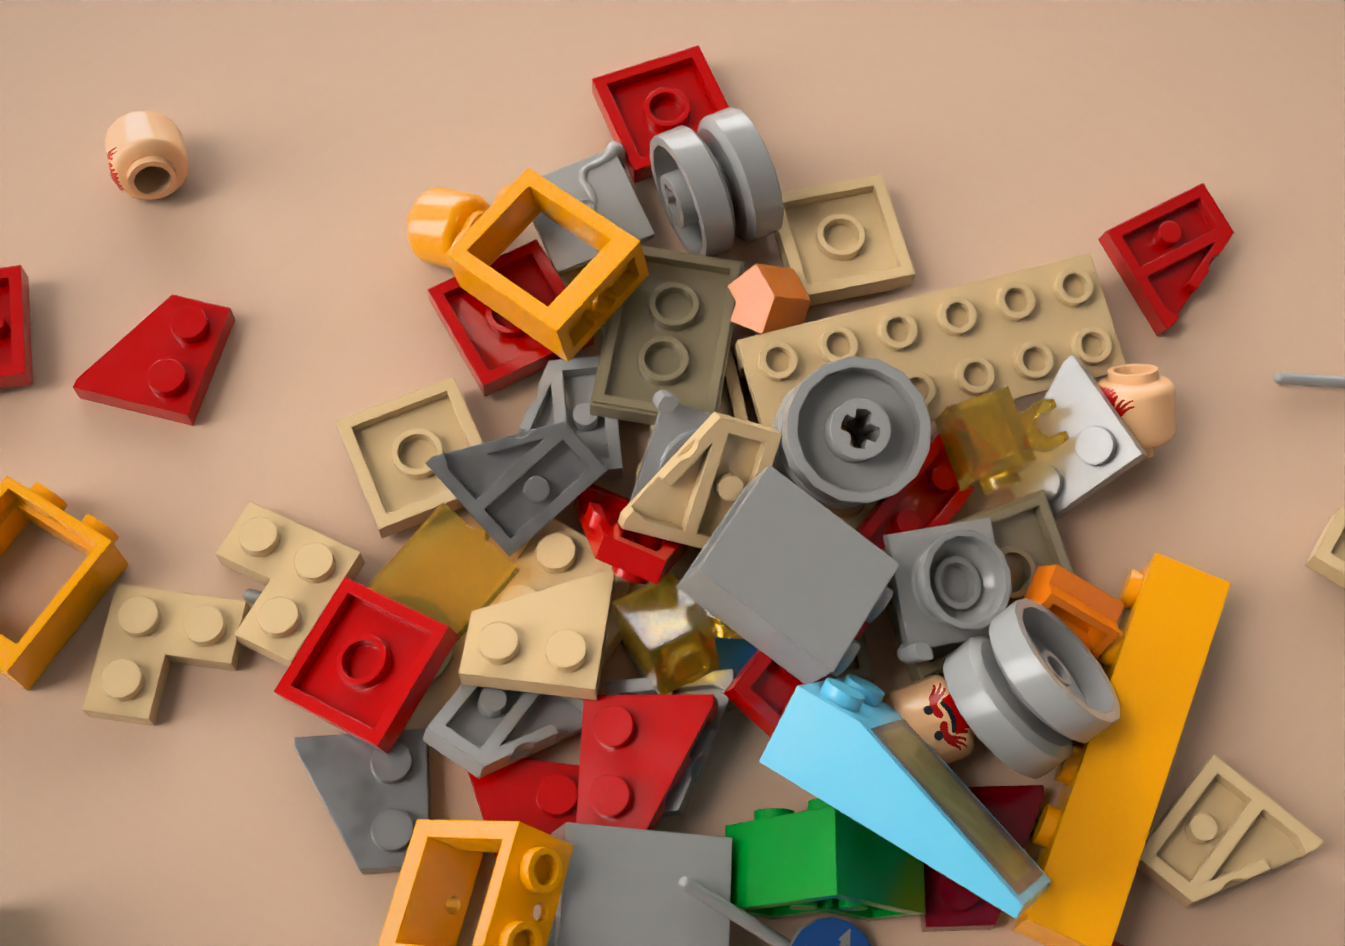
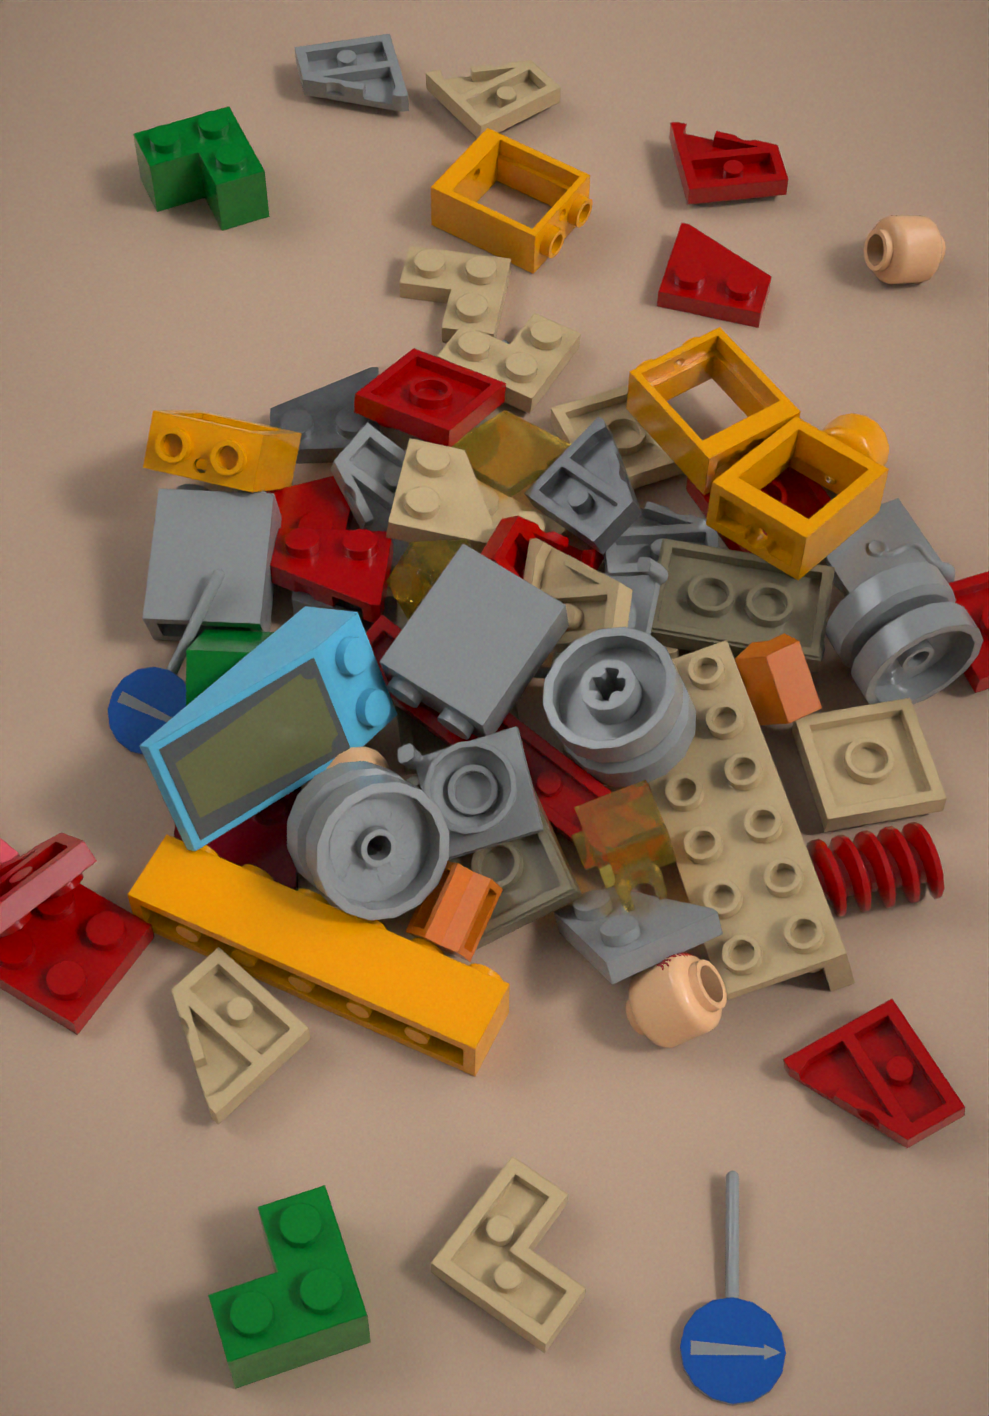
camera: 95 degrees right, 10 degrees down
(390, 302) = (691, 364): none -> light orange window
(966, 230) = (877, 866): none -> red piece

